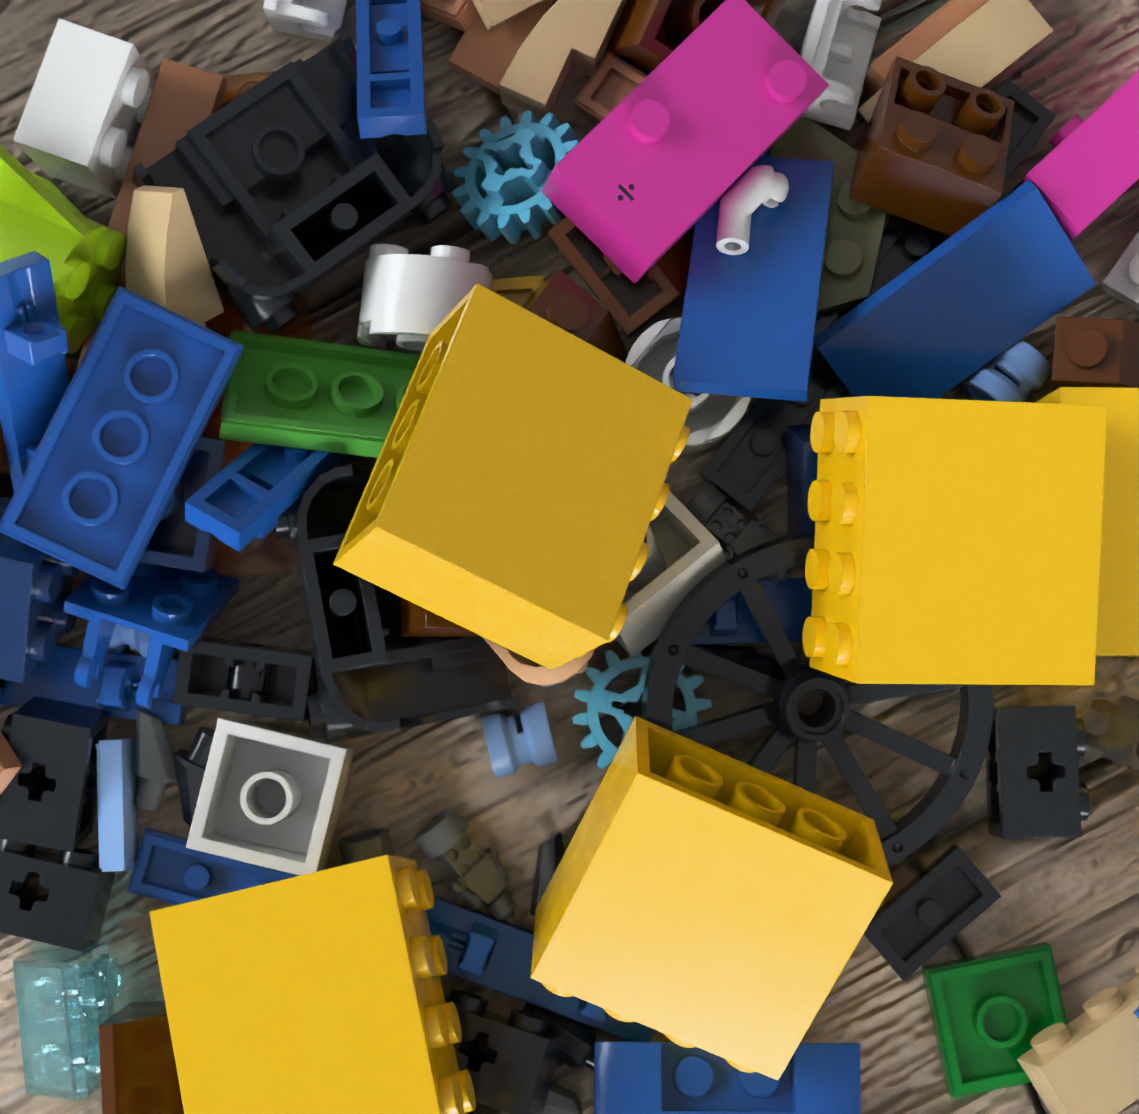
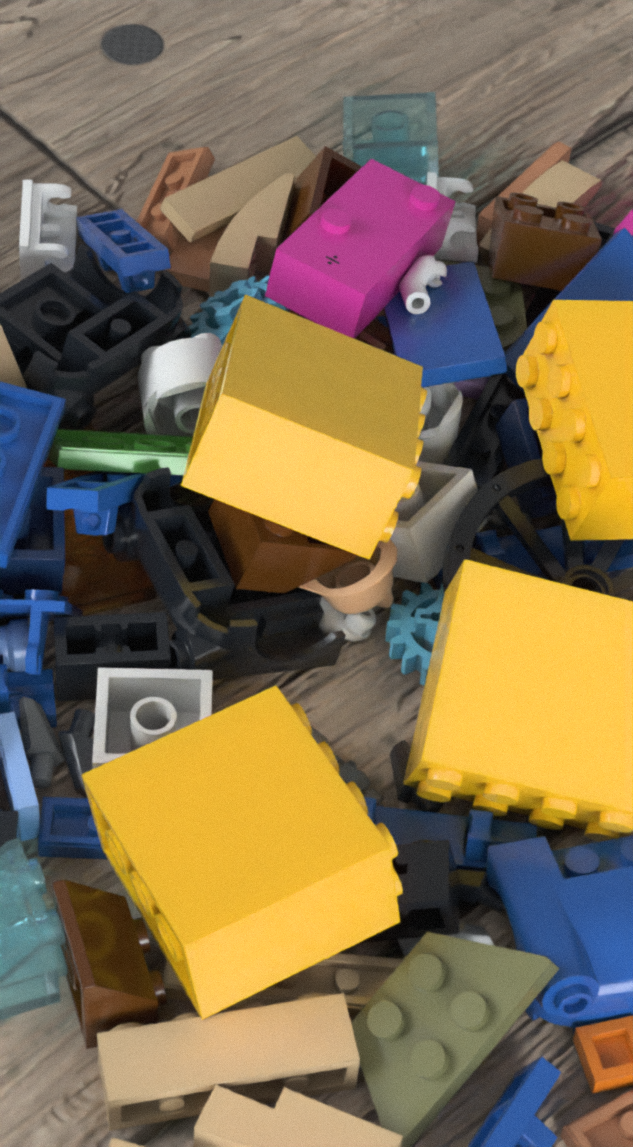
camera: 15 degrees left, 35 degrees down
(519, 739) = (350, 670): medium blue wheel -> none

